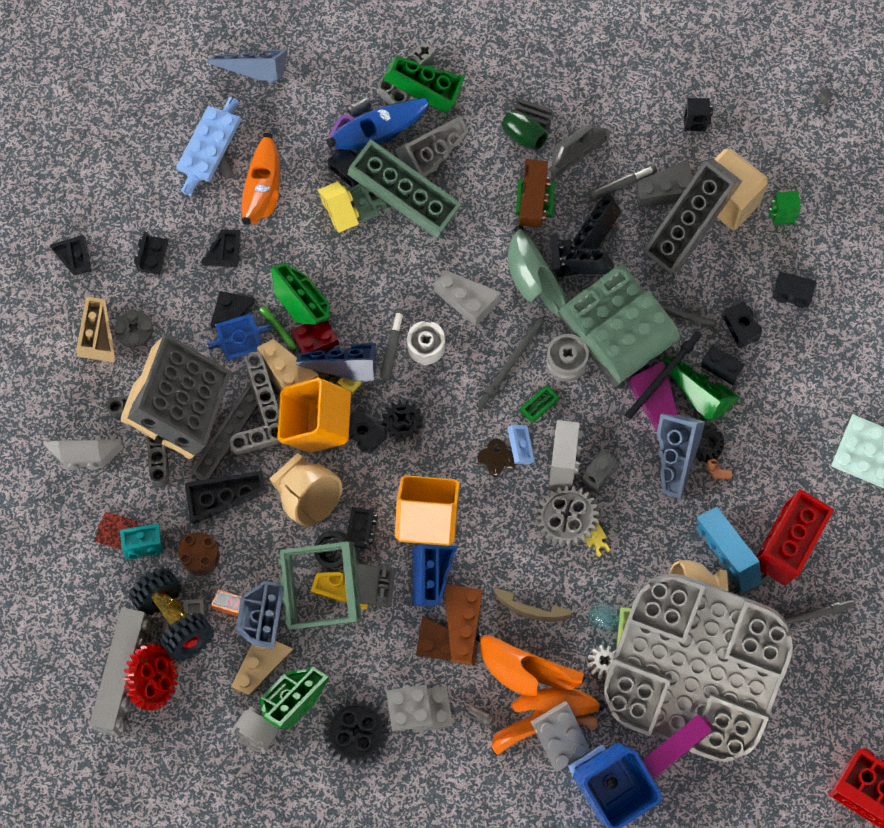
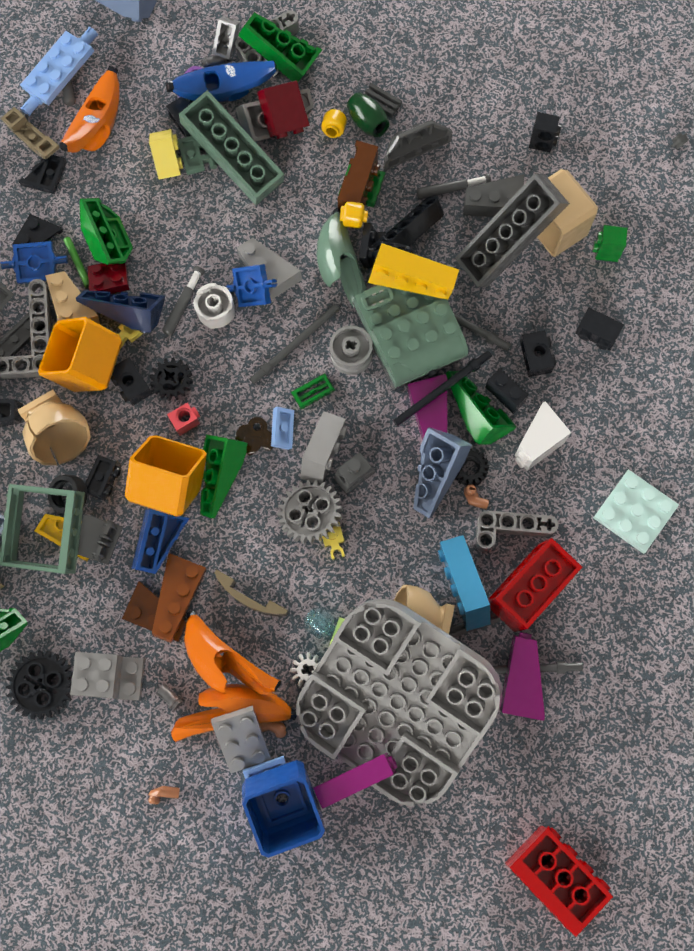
camera: 15 degrees right, 5 degrees up
(198, 214) = (30, 135): none -> dark tan slope
(368, 78) = (226, 34): none -> light grey torso
(424, 463) = (176, 415): none -> coral brick
(443, 142) = (283, 109): none -> dark red brick
(458, 316) = (251, 285): none -> blue plate
(474, 497) = (222, 466): none -> green wedge
(493, 144) = (334, 123): none -> yellow head
(497, 803) = (163, 791): none -> nougat arm
(538, 229) = (353, 214): none -> yellow head
(613, 274) = (412, 273): none -> yellow wedge
(764, 489) = (517, 527): none -> light grey beam
(766, 402) = (542, 438): none -> white slope
(805, 624) = (522, 684): none -> magenta slope

